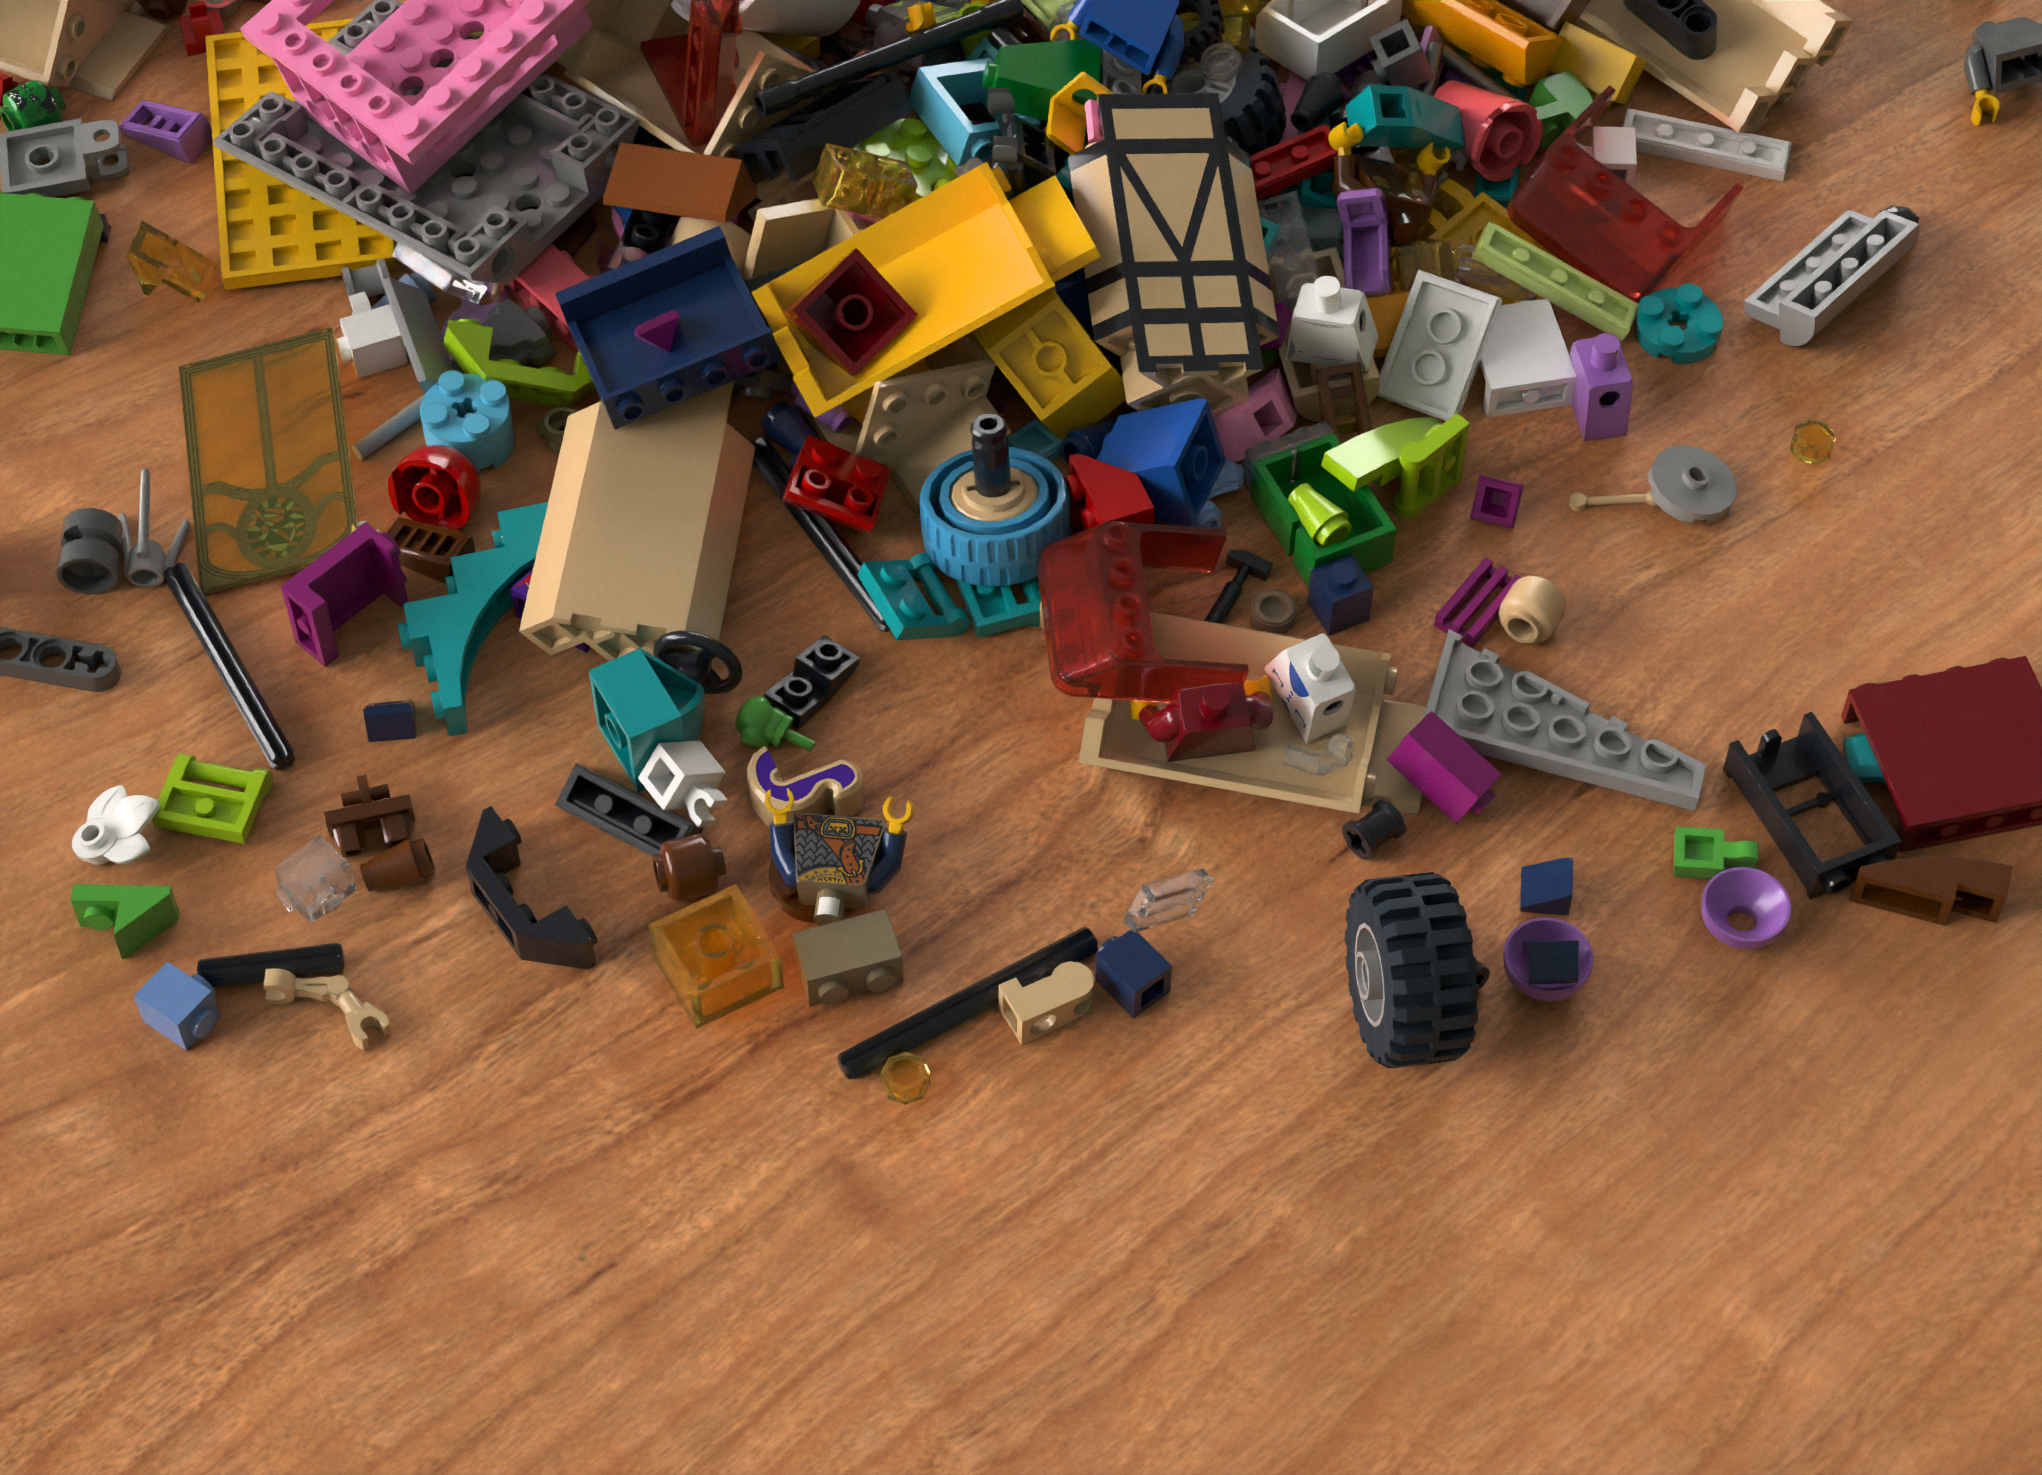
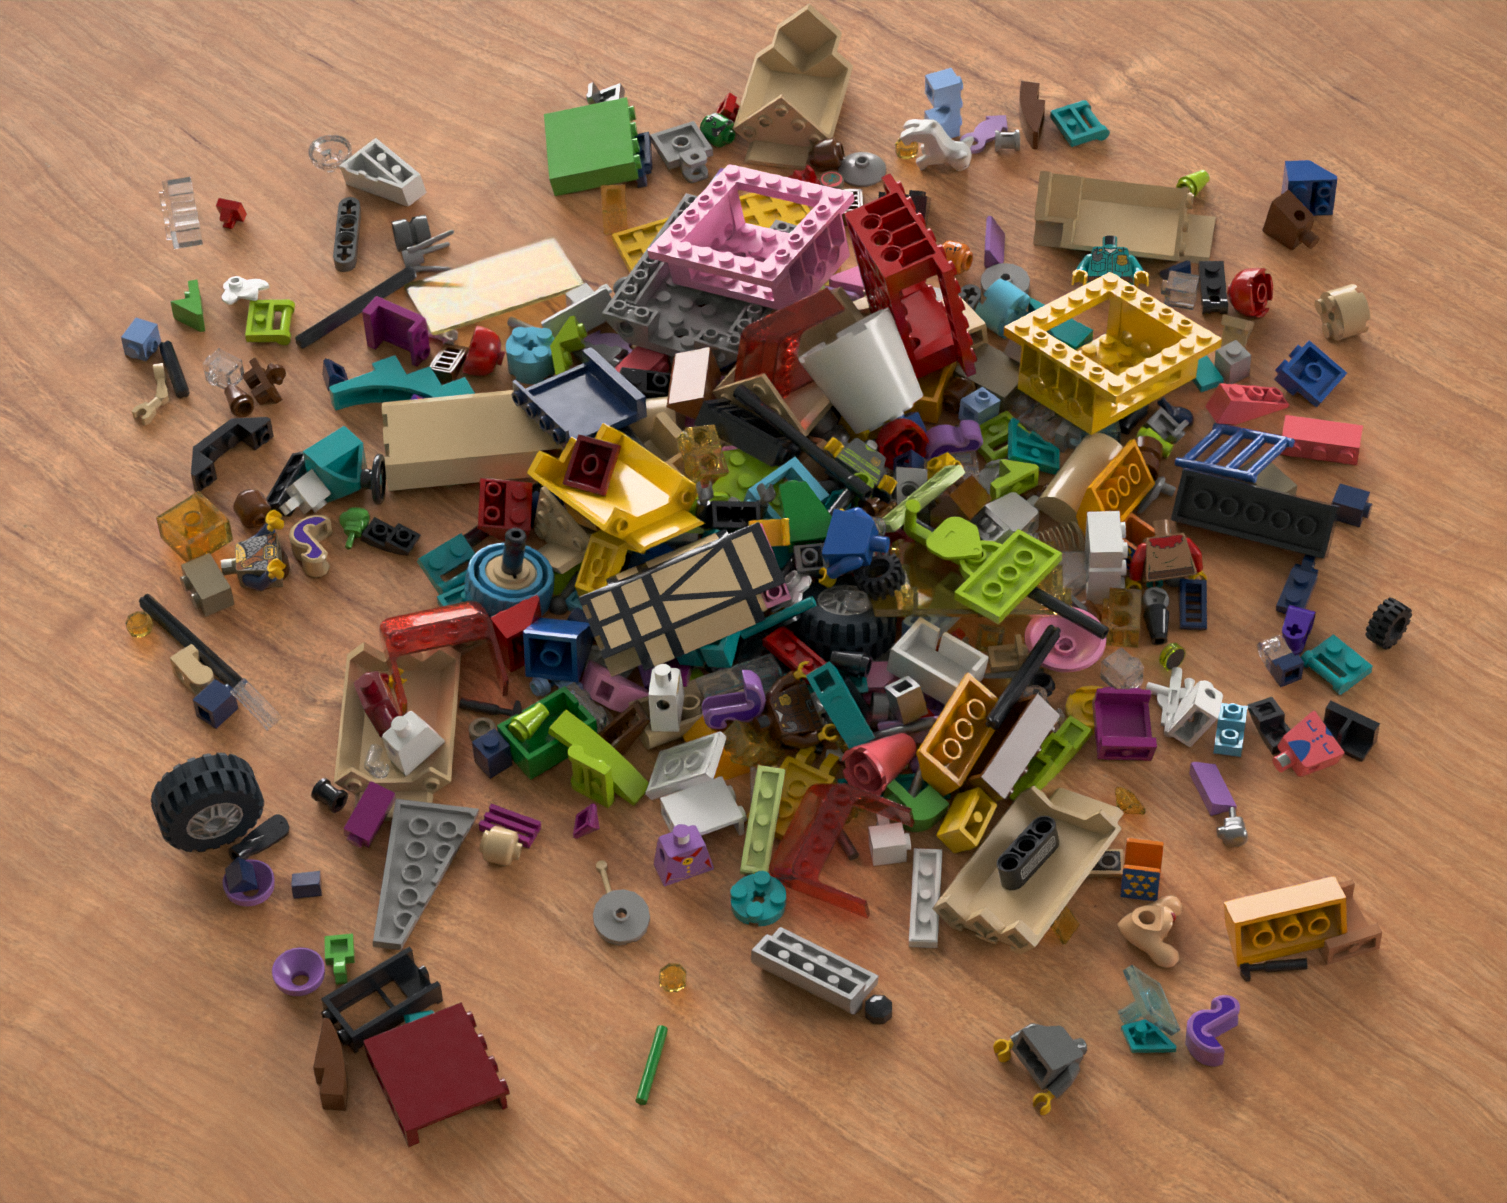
camera: 80 degrees right, 5 degrees down
(659, 331) = (574, 396): magenta slope -> none
(1963, 494) = (651, 1065): none -> green bar

